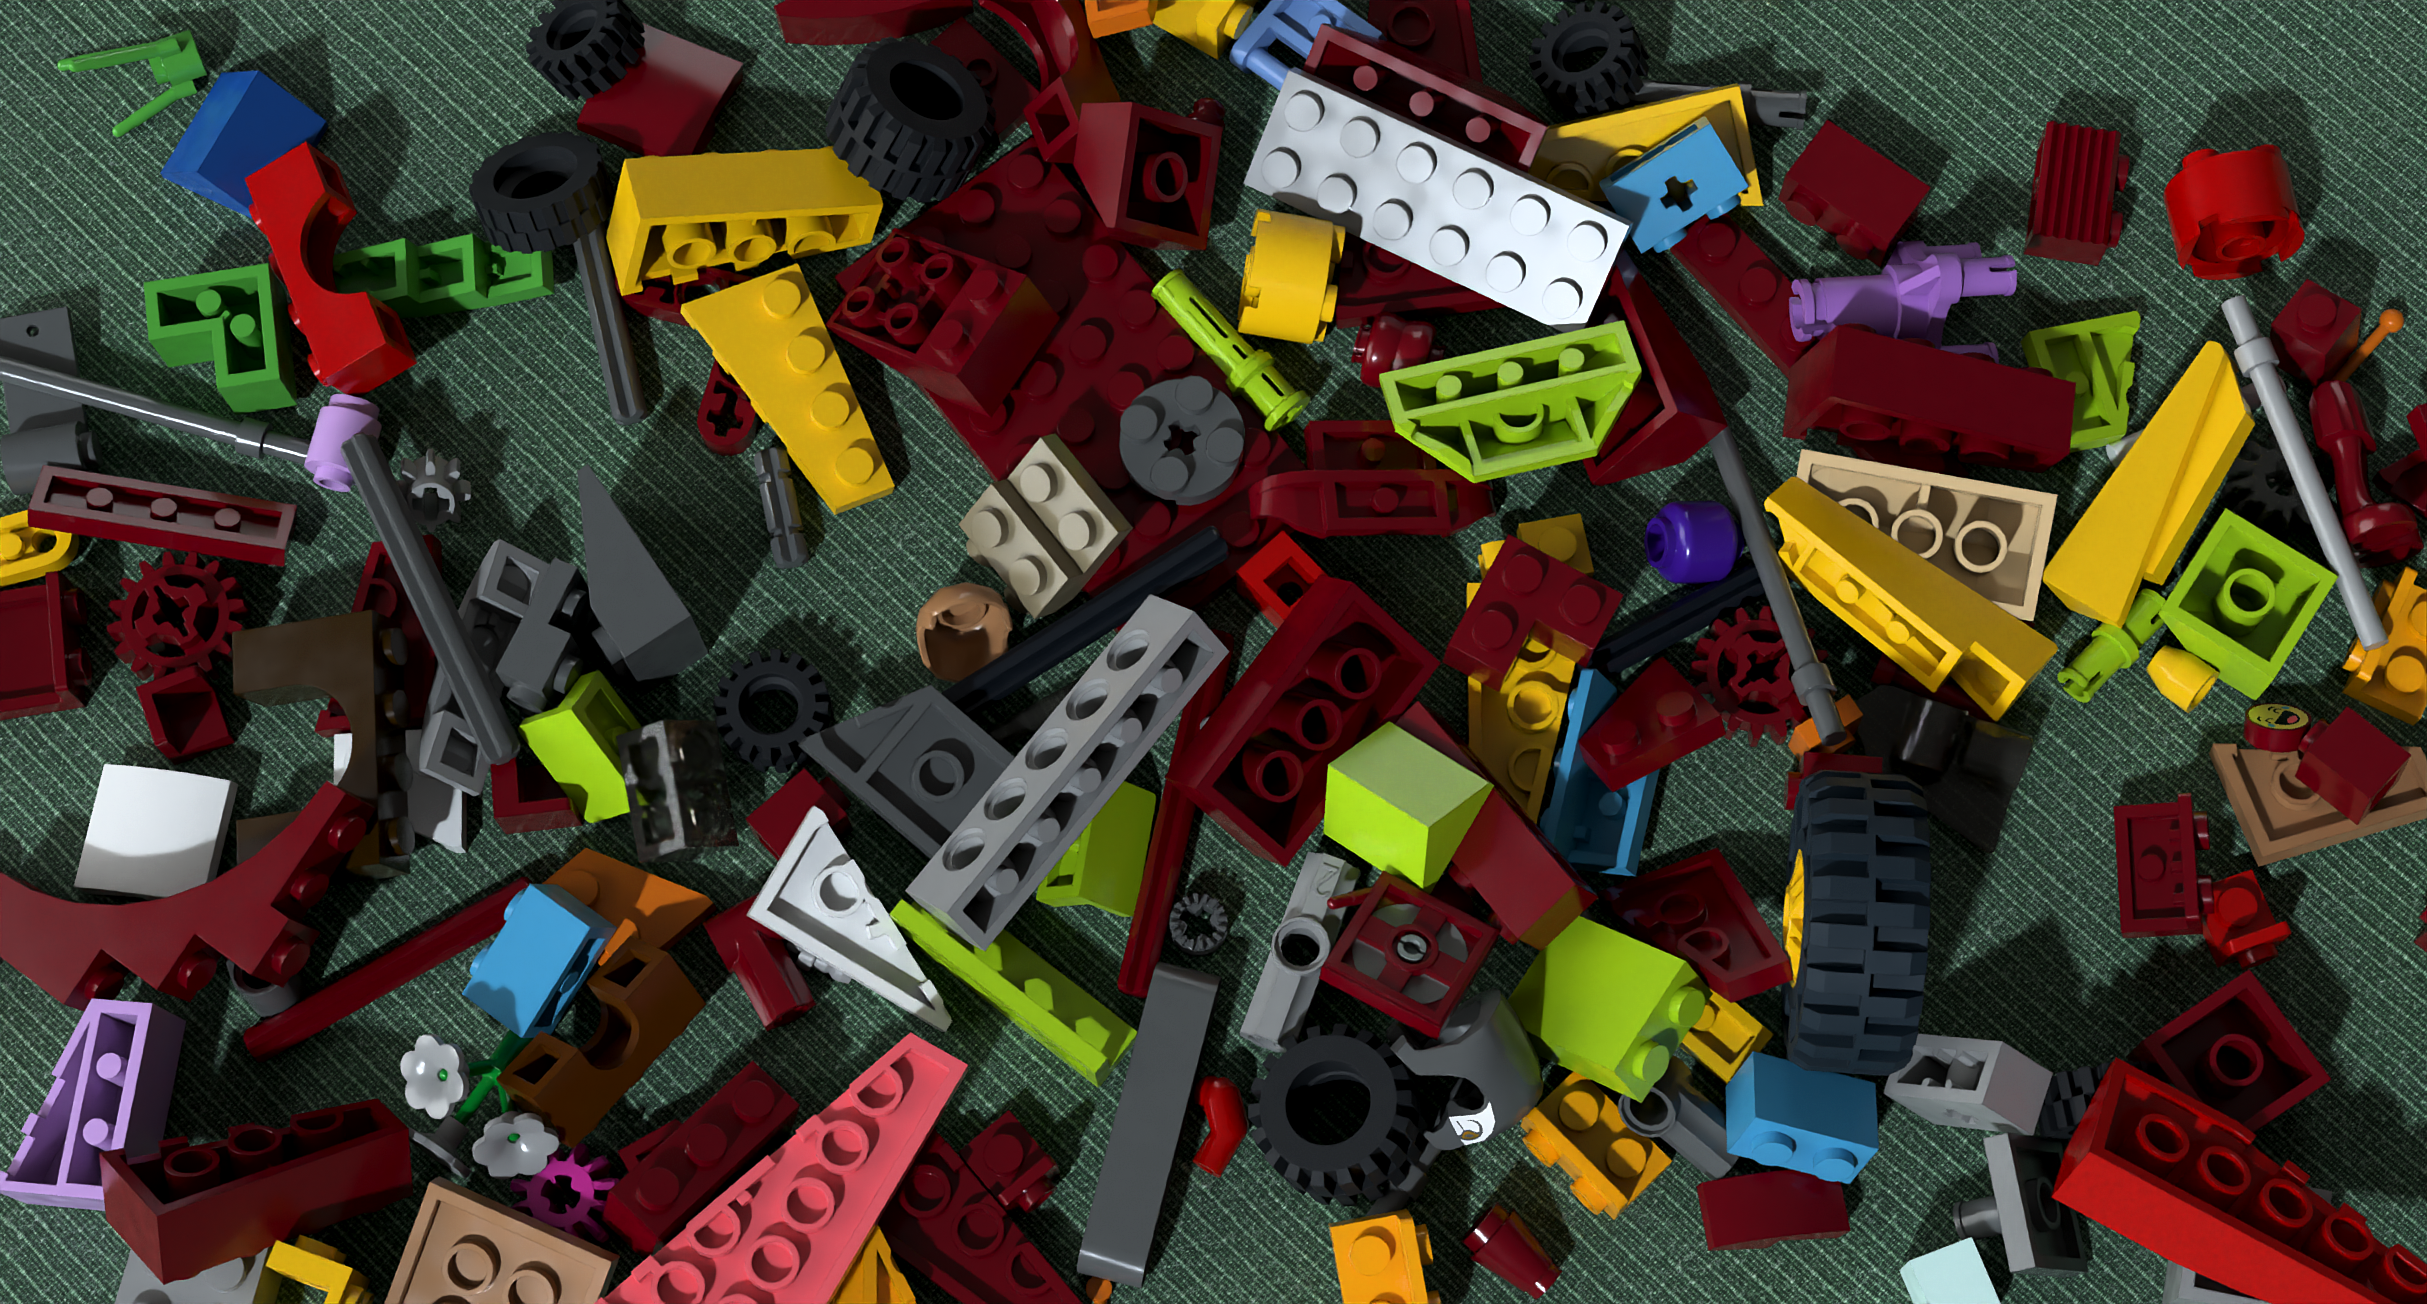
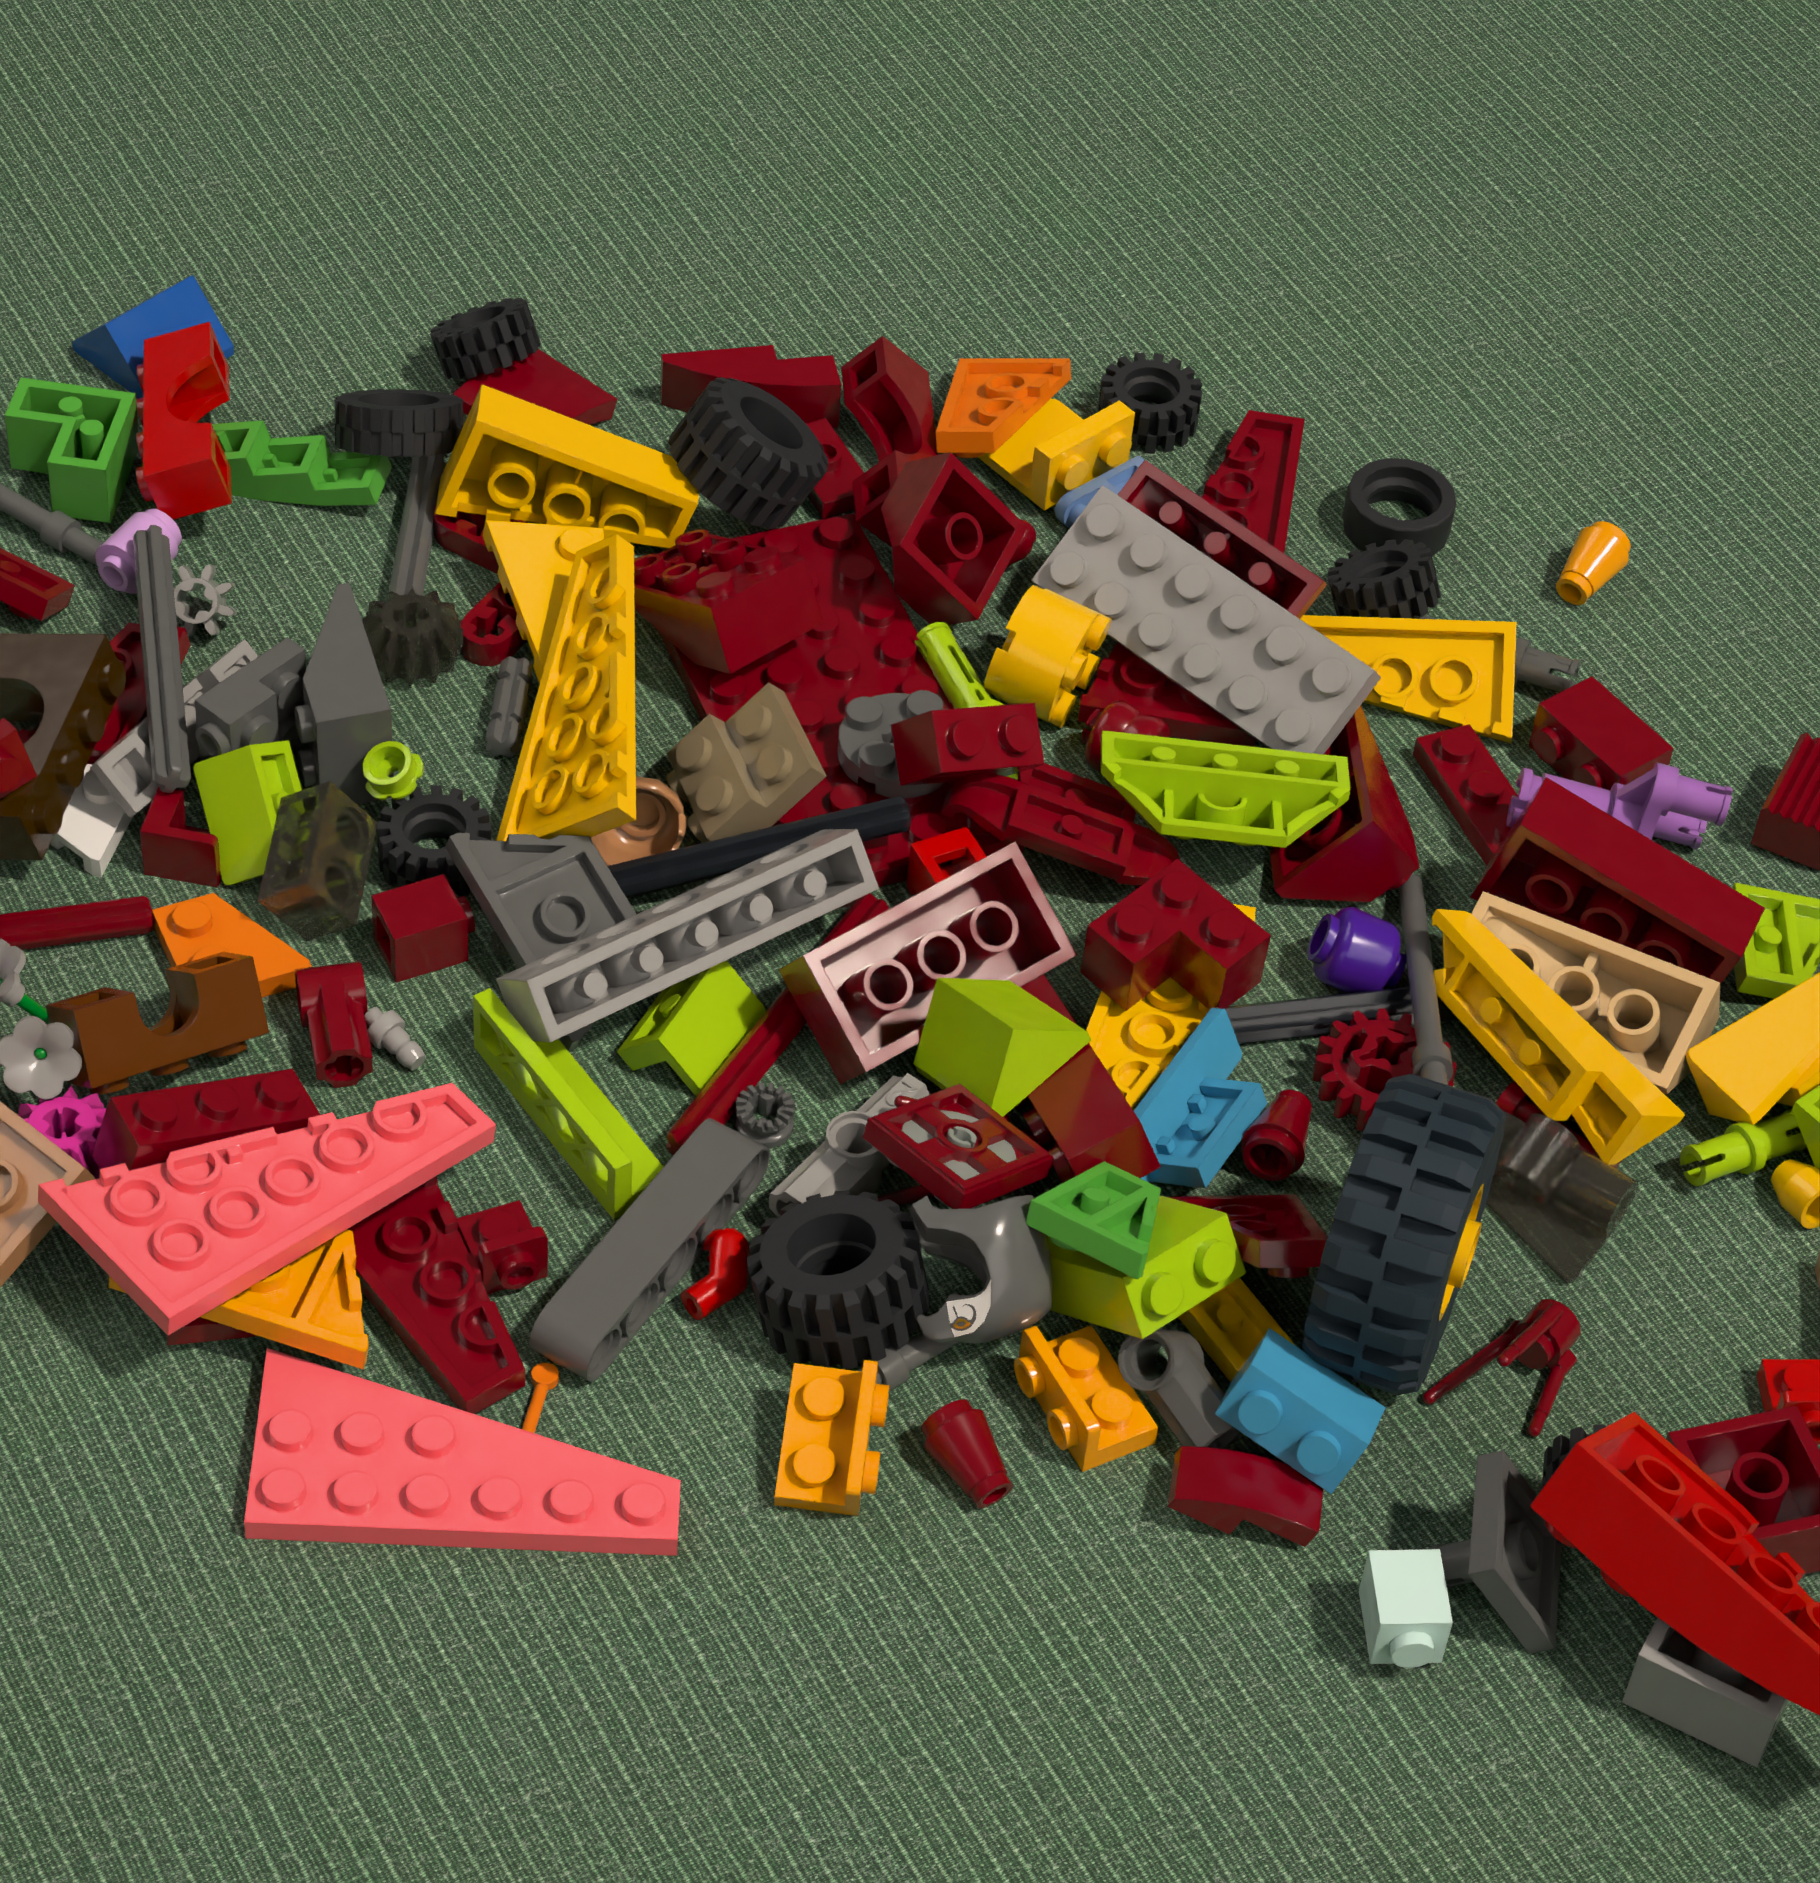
camera: 10 degrees right, 25 degrees down
(170, 59) = (120, 266): bright green plant -> none
(537, 959) = (130, 942): dark azure brick -> none
(631, 460) = (413, 636): none -> clear smoke gear
(692, 658) = (383, 761): none -> lime plate
(828, 910) = (418, 987): white wing -> none
(877, 569) = (582, 734): none -> yellow wing
(1259, 451) = (966, 743): none -> dark red brick
(1574, 1002) = (1100, 1215): none -> bright green wing
(1649, 727) = (1259, 1067): dark red wing -> none
(1684, 794) = (1278, 1137): none -> dark red cone
(1688, 155) = (1455, 663): dark azure brick -> none
(1971, 1084) = (1477, 1415): light grey brick -> none
(1988, 941) = (1537, 1342): none -> dark red plant
(2161, 868) = (1736, 1329): dark red bracket -> none

